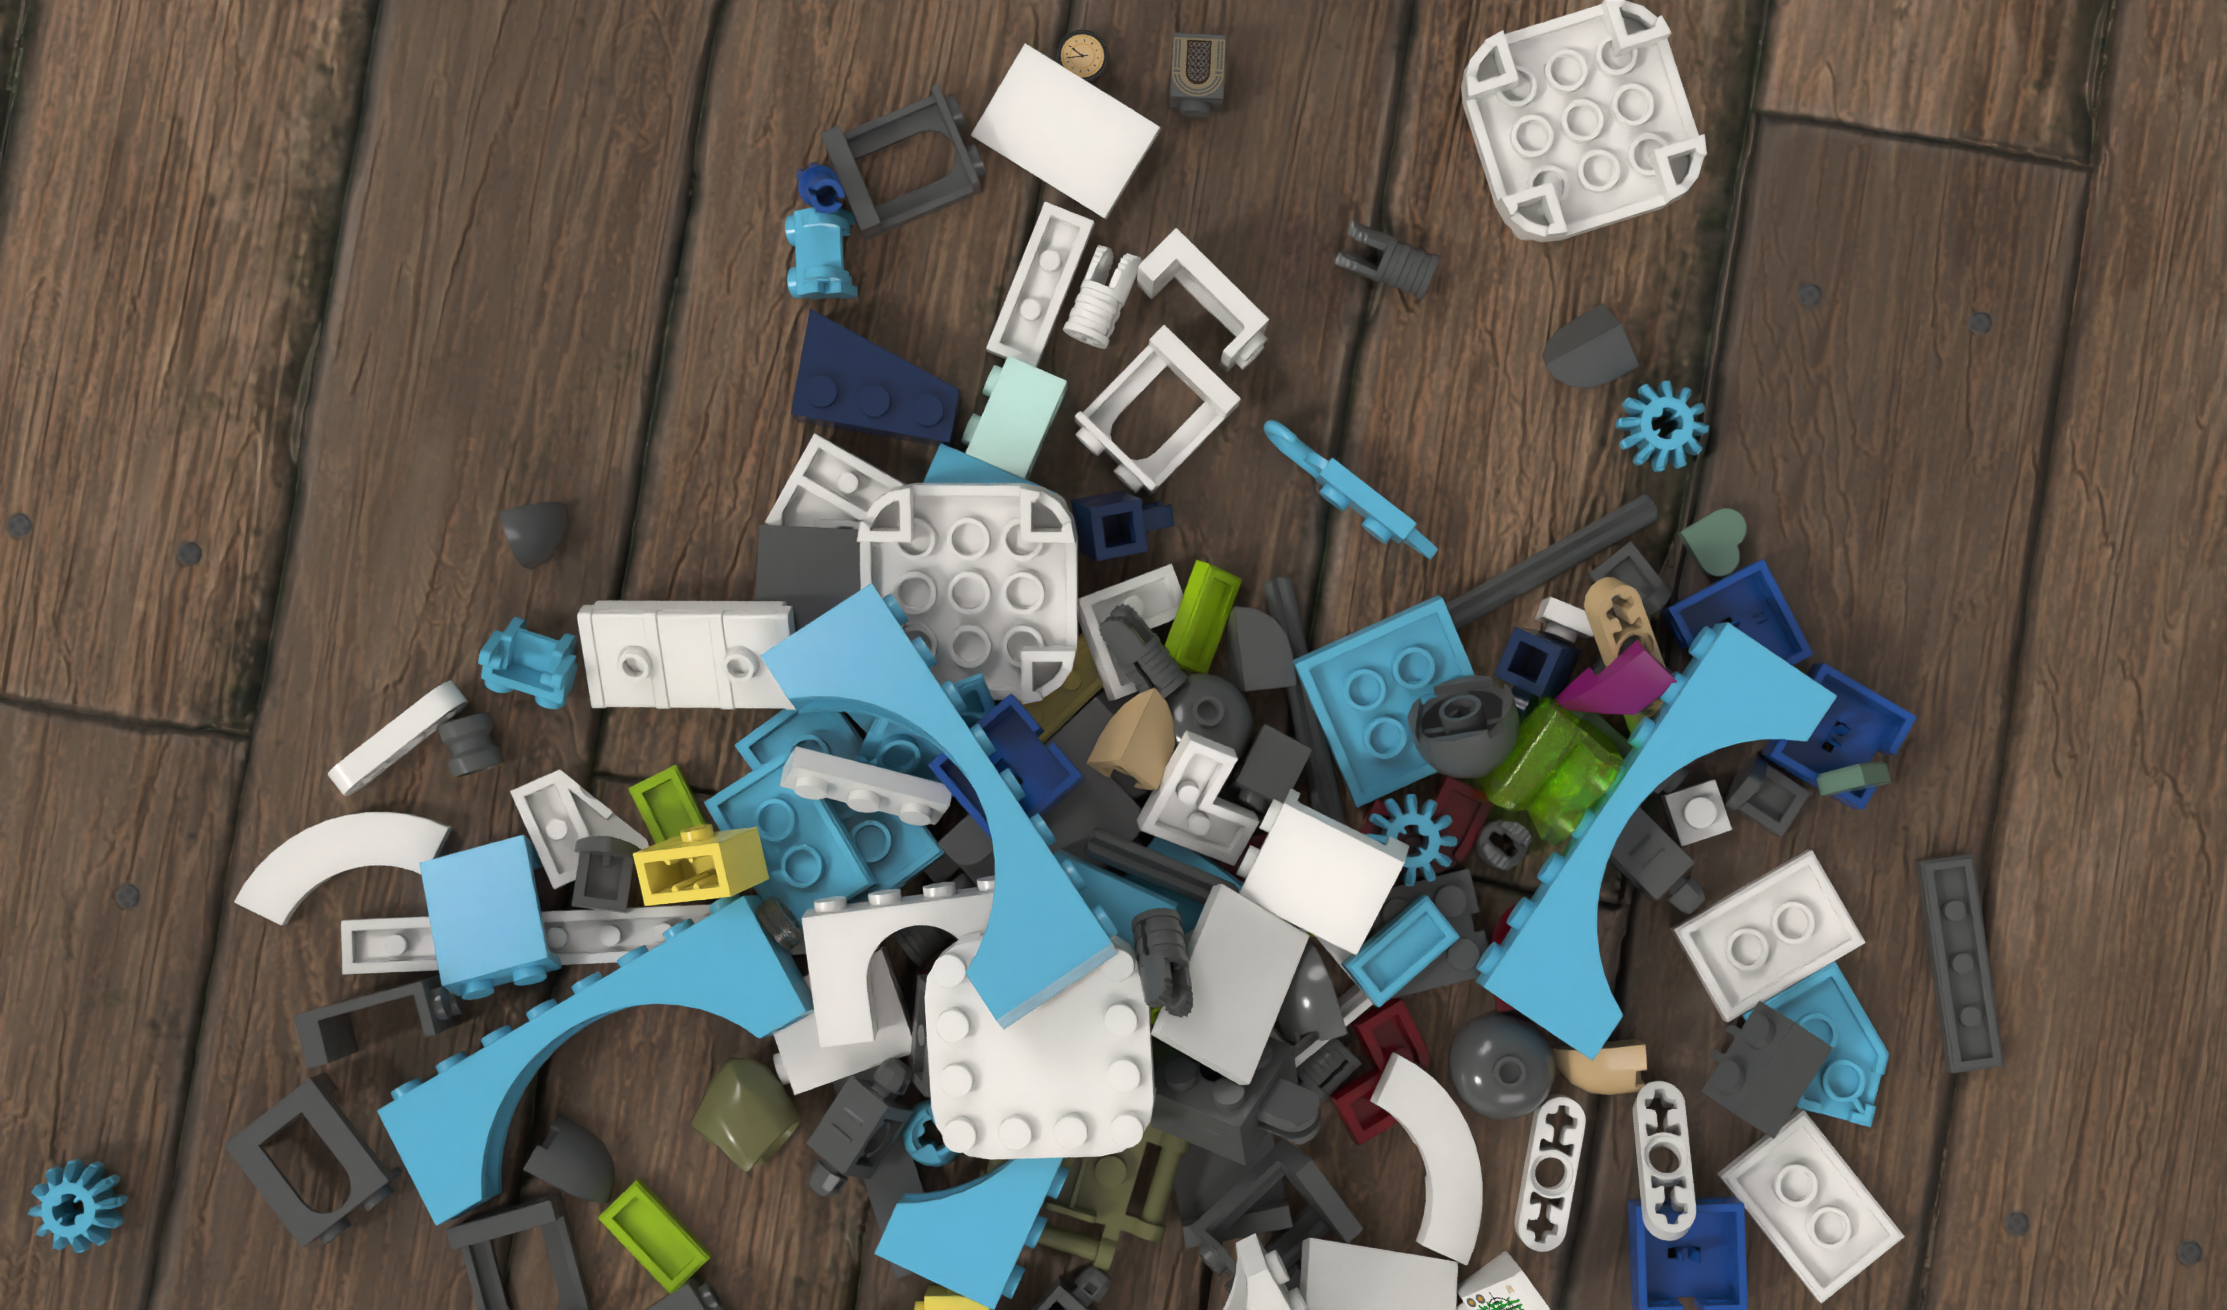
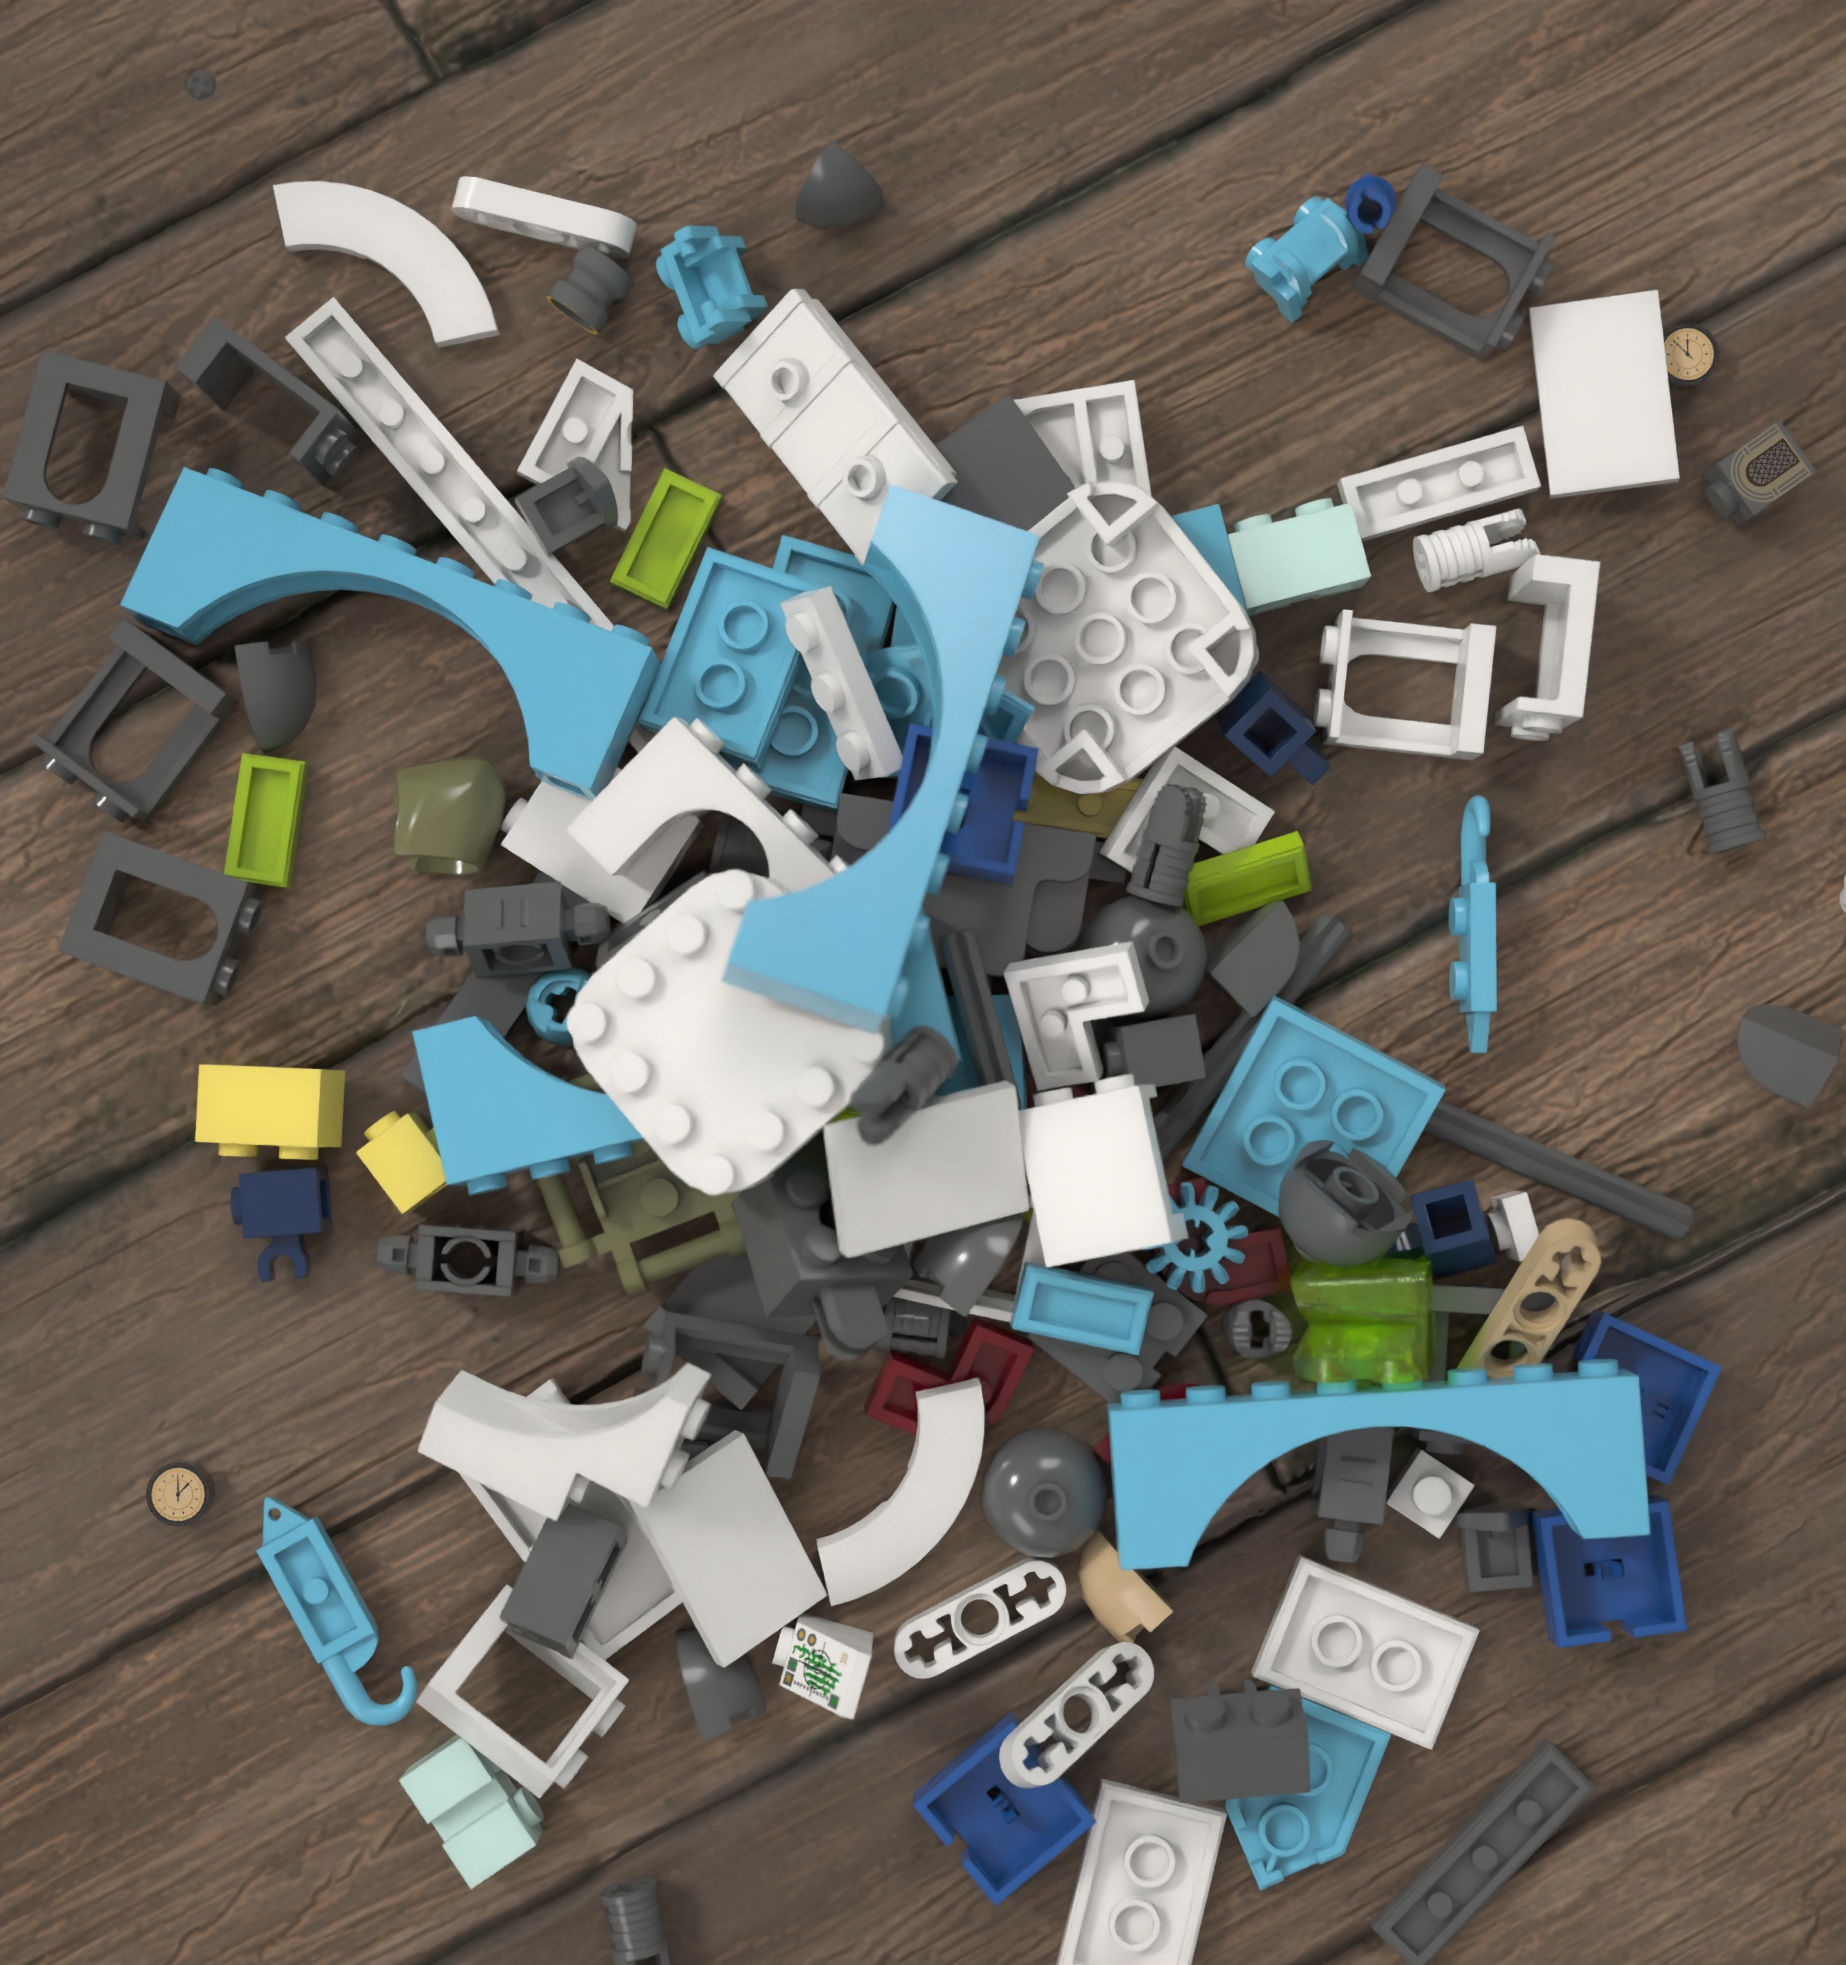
camera: 50 degrees right, 0 degrees up
(487, 918) = (442, 429): medium azure panel -> none
(701, 865) = (648, 587): light yellow brick -> none
(780, 922) = (653, 703): clear smoke tile -> none
(870, 391) = (1216, 400): dark blue wedge -> none
(1137, 741) = (1085, 905): tan brick -> none
(1621, 688) = (1496, 1324): magenta slope -> none
(1633, 569) = (1615, 1249): dark grey tile -> none
(1674, 444) = (1794, 1179): medium azure gear -> none
(1715, 540) = (1699, 1310): sand green tile -> none
(1853, 778) = (1582, 1613): sand green tile -> none

